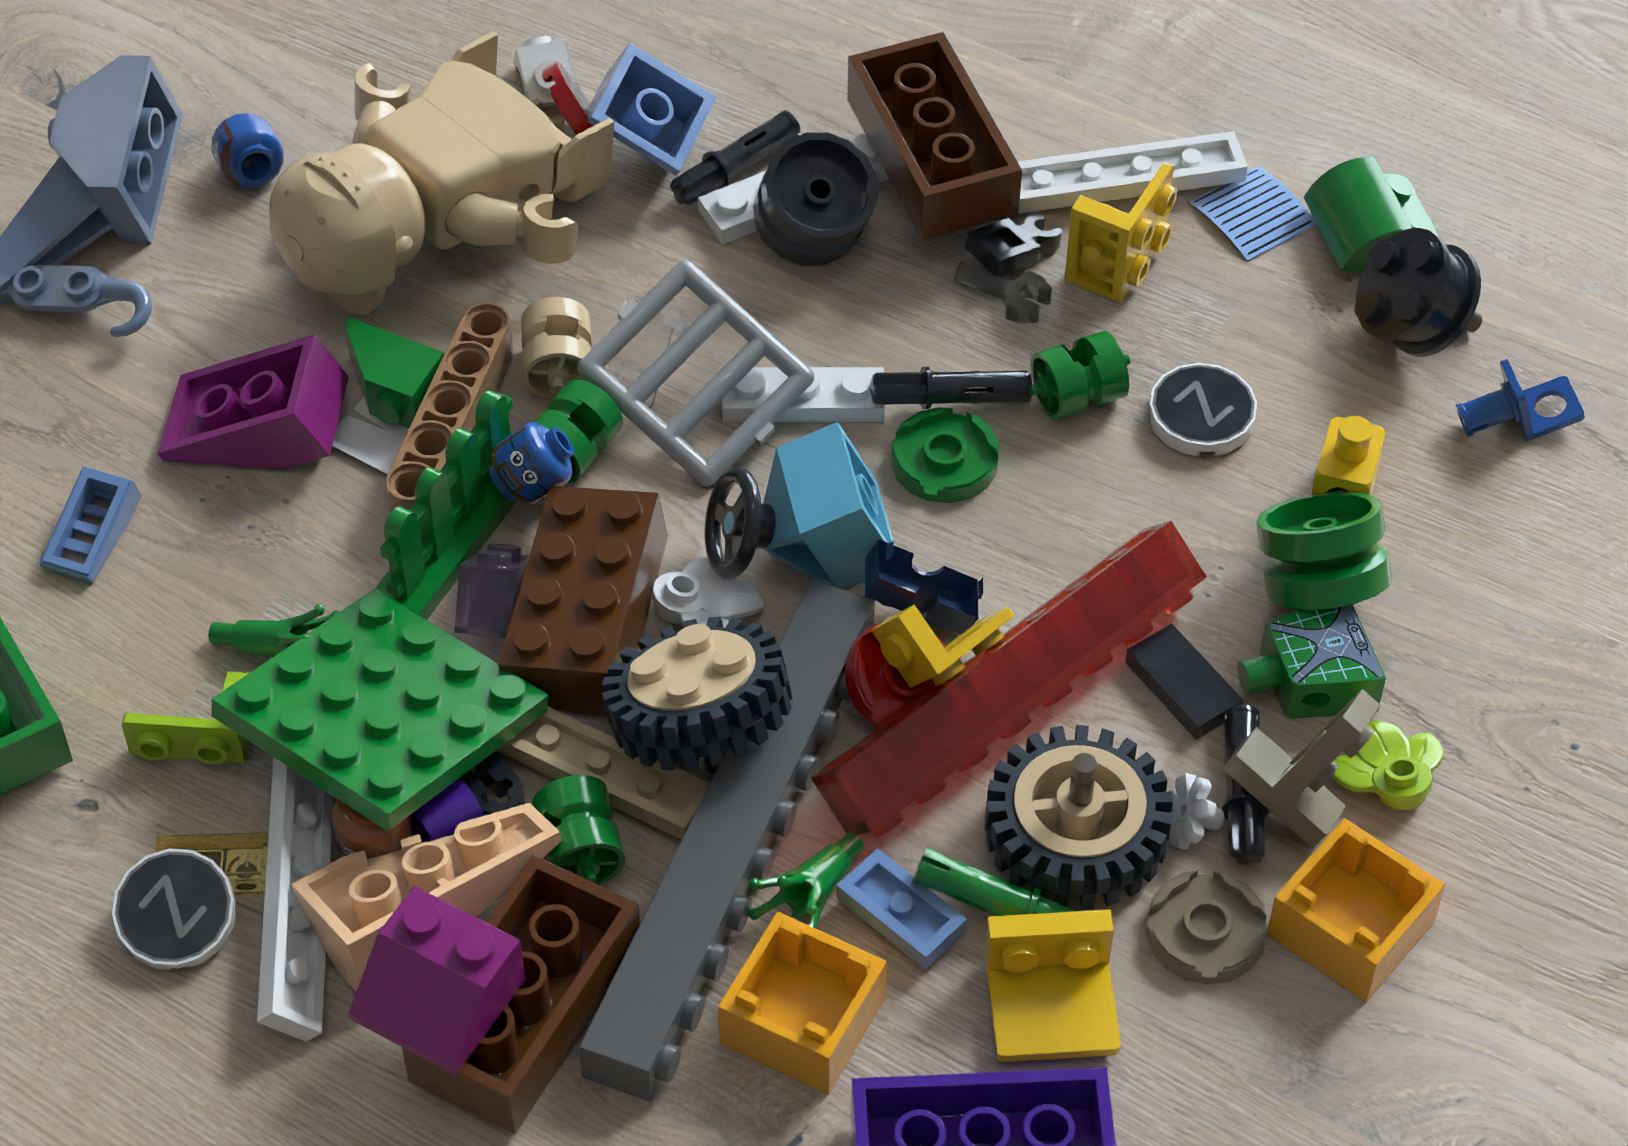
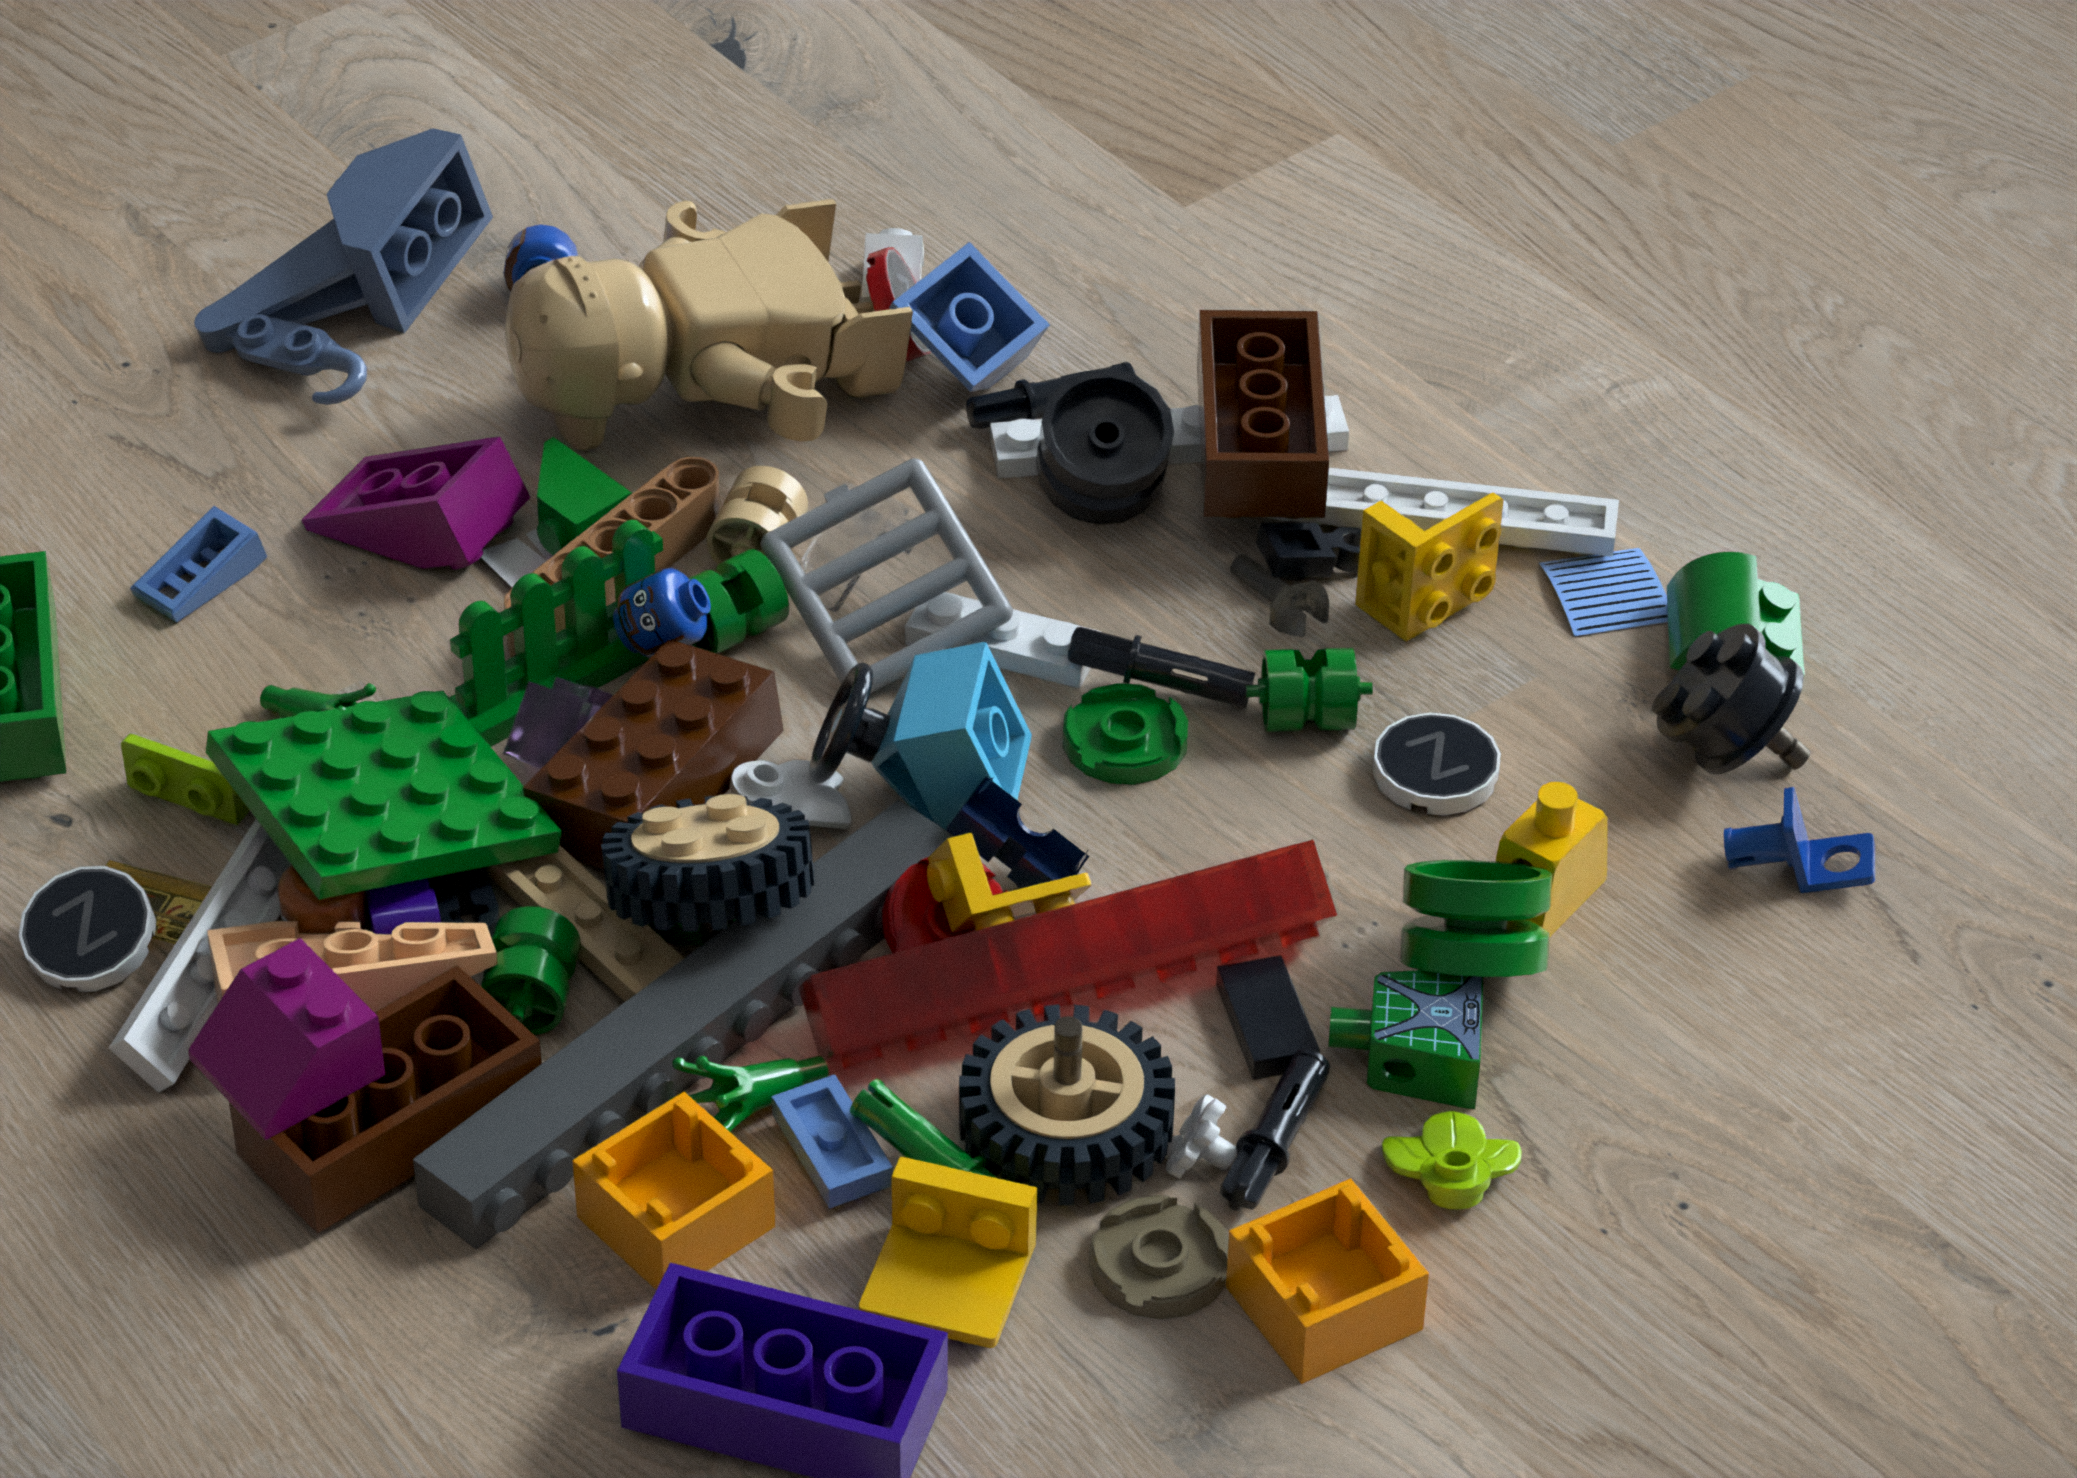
camera: 20 degrees right, 10 degrees down
(1295, 785) = (1319, 1129): dark tan bracket -> none

